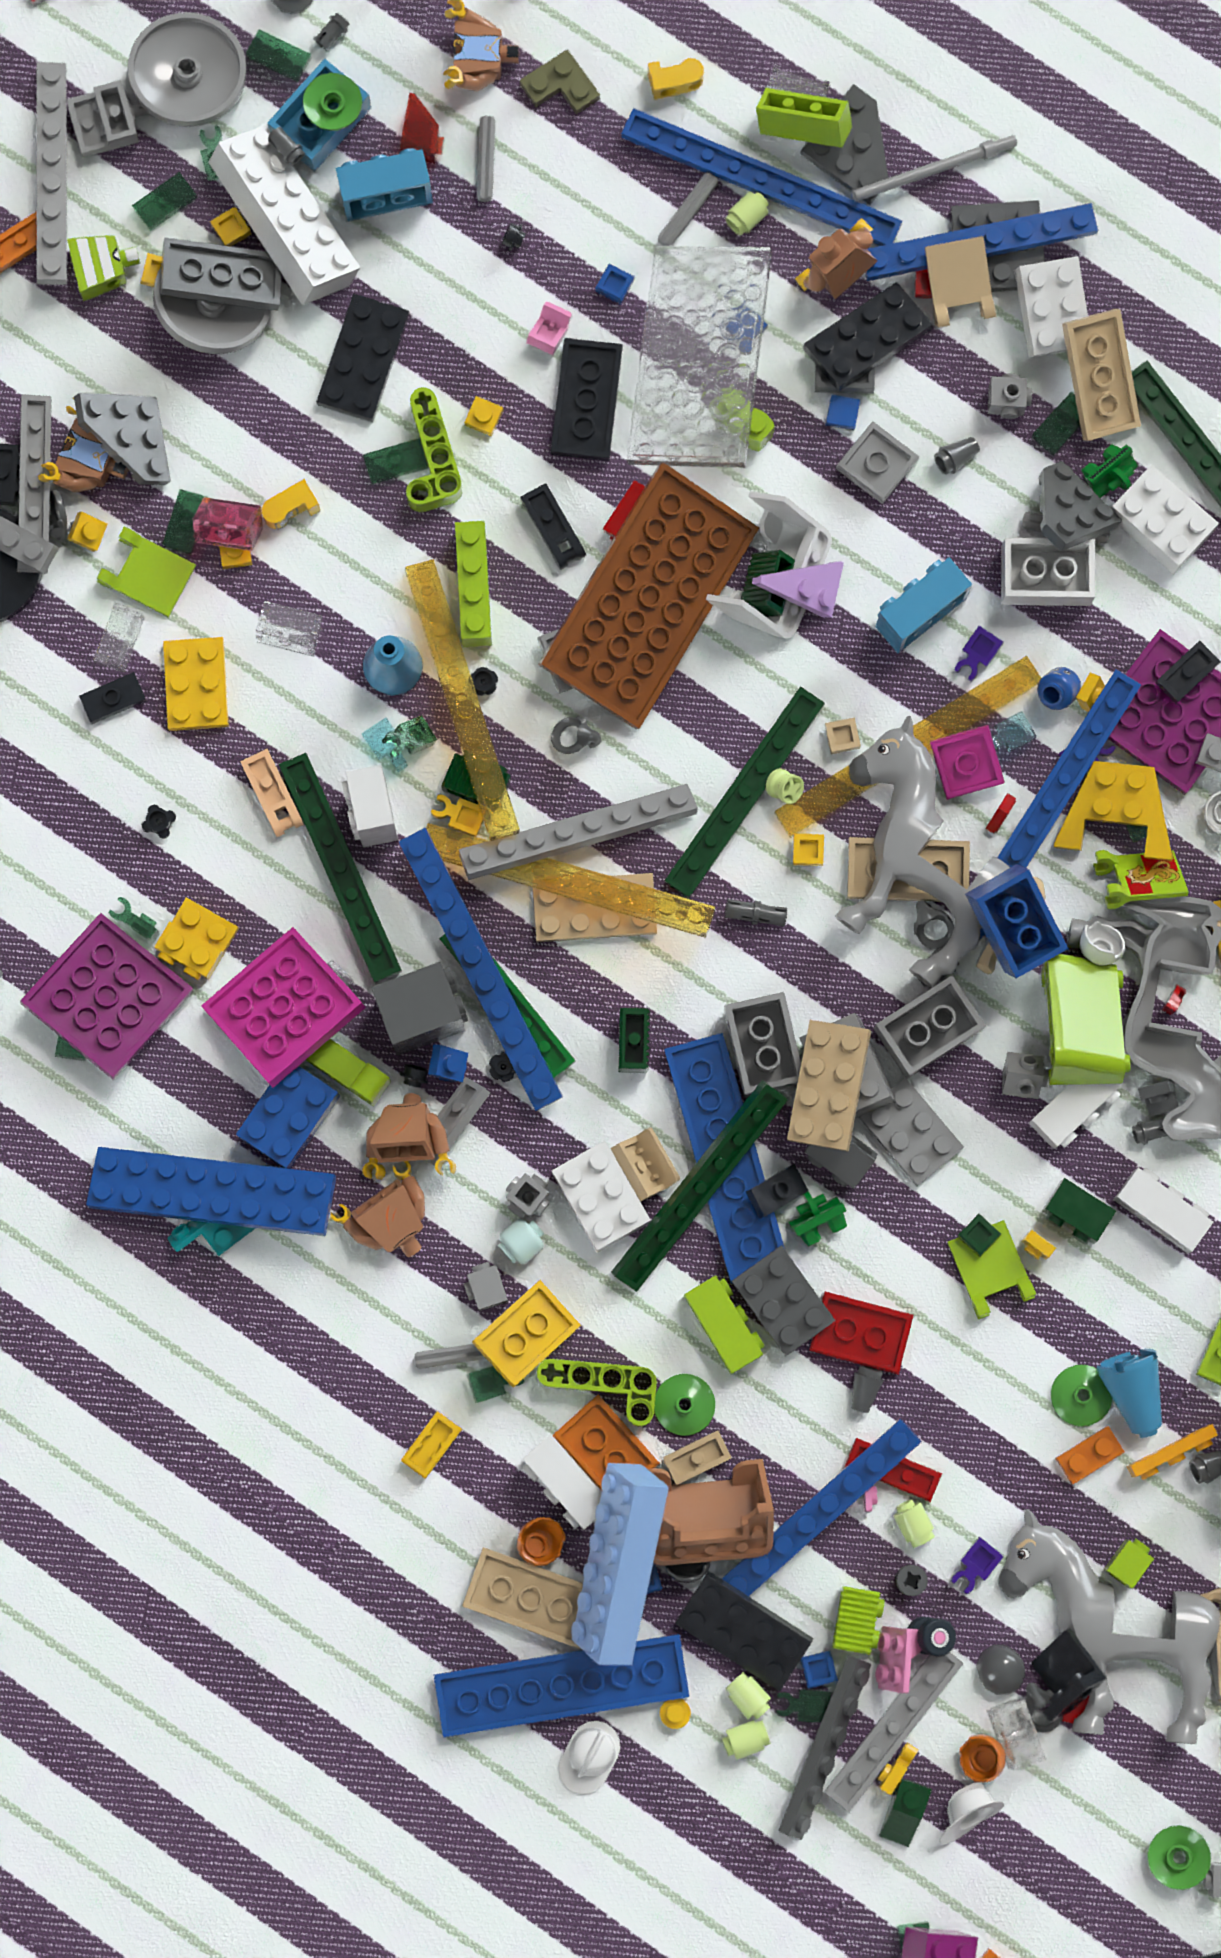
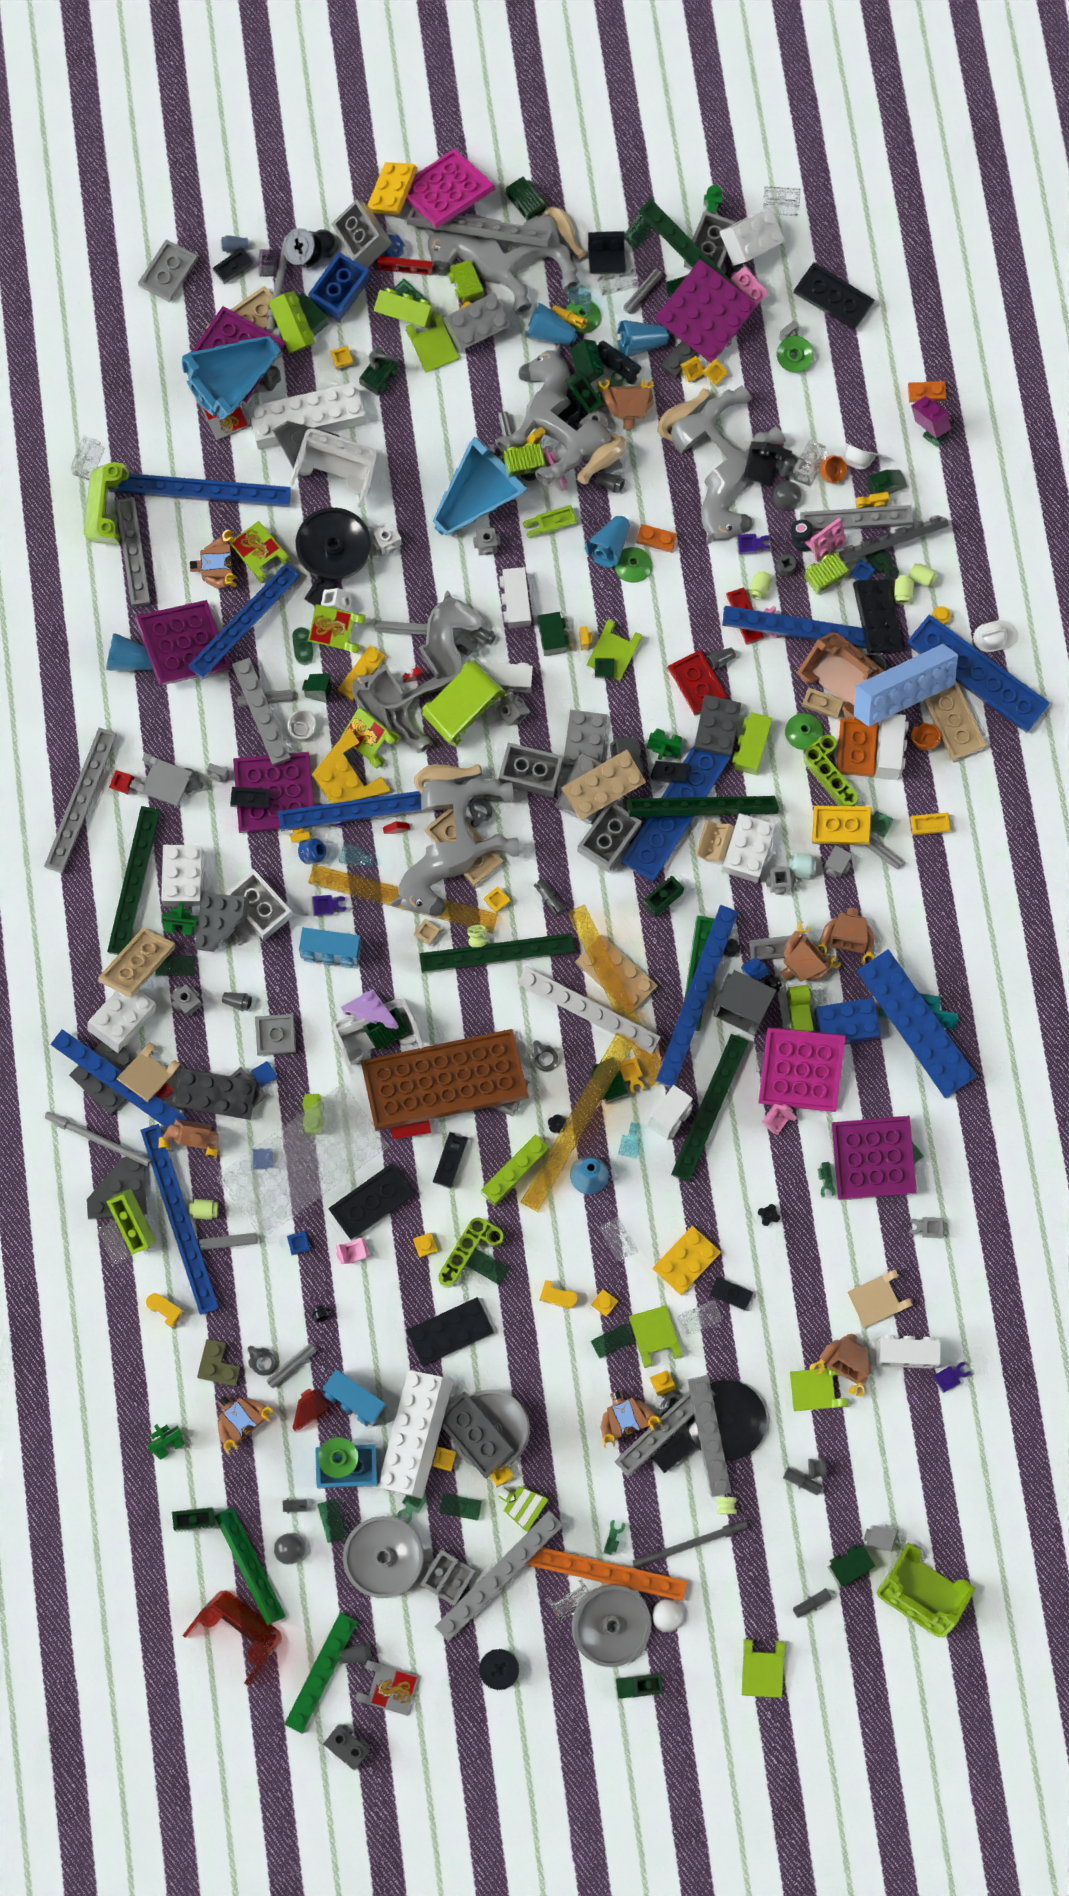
camera: 135 degrees left, 5 degrees down
(128, 432) = (597, 1406): plate -> none
(195, 940) = (807, 1144): yellow plate -> none
(228, 524) = (596, 1314): clear pink brick -> none
(255, 931) = (778, 1117): none -> bright pink bracket
(271, 791) = (704, 1174): light nougat plate -> none
(286, 146) = (381, 1461): dark grey pin -> none
(412, 735) = (617, 1130): clear green plate -> none
(534, 131) = (254, 1354): none -> dark grey piece
(967, 762) = (387, 862): dark pink plate -> none
(1016, 921) = (448, 765): blue brick -> none
(1101, 944) = (420, 724): white hair -> none
(1129, 1562) = (688, 480): lime brick -> none
(1173, 1452) = (621, 503): light orange plate -> none

